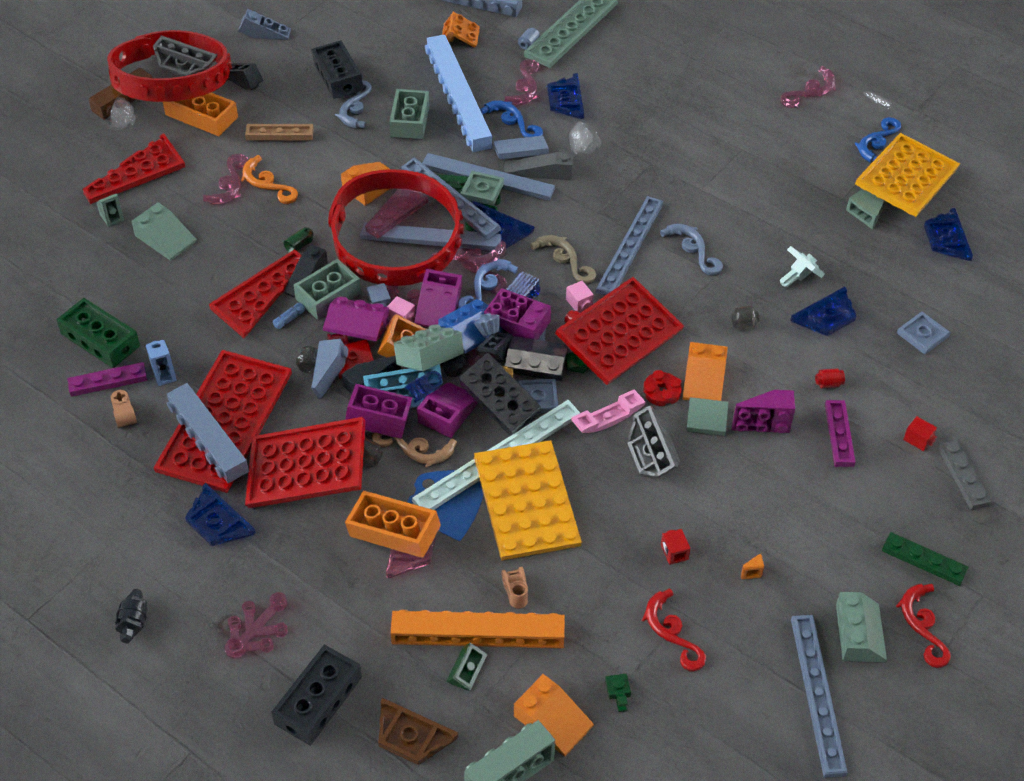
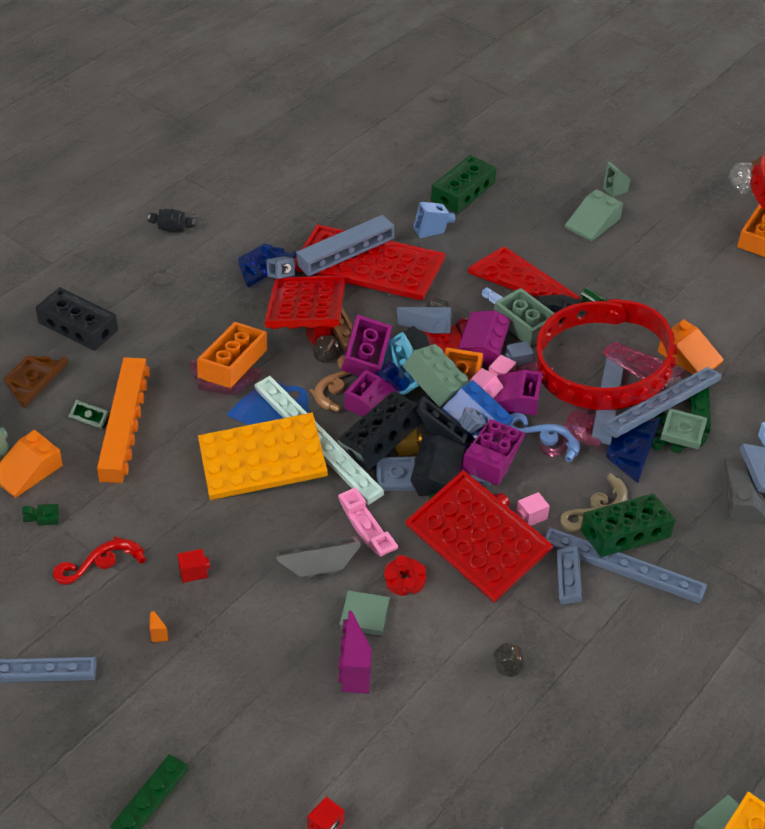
camera: 90 degrees right, 5 degrees down
(107, 379) = (415, 191): magenta plate -> none
(123, 409) = (381, 205): nougat piece -> none
(141, 167) = (679, 200): red wing -> none
(224, 182) = (675, 257): clear pink plant -> none
(235, 496) = (280, 267): none -> sand blue brick
(256, 628) = (136, 280): clear pink plant -> none
(266, 181) = (683, 281): orange plant -> none
(279, 132) = (750, 285): medium nougat plate -> none
(433, 313) = (488, 382): none -> bright pink brick
(511, 182) = (715, 446): sand blue tile -> none
(515, 584) = (163, 444): nougat piece -> none
(525, 285) = (536, 462): clear blue brick -> none
(596, 233) = (627, 525): none -> dark green brick
(653, 276) = (569, 575): none -> sand blue plate
(691, 248) = (626, 623): sand blue plant -> none
(705, 371) = (423, 613): orange slope -> none
(801, 268) = (599, 728): light aqua piece -> none
(827, 314) = (524, 751): clear blue wing -> none
(830, 378) = (415, 735): red brick -> none
(840, 433) = (332, 735): magenta plate -> none
(860, 628) = (67, 714): sand green slope -> none
(921, 627) = (62, 776): red plant -> none

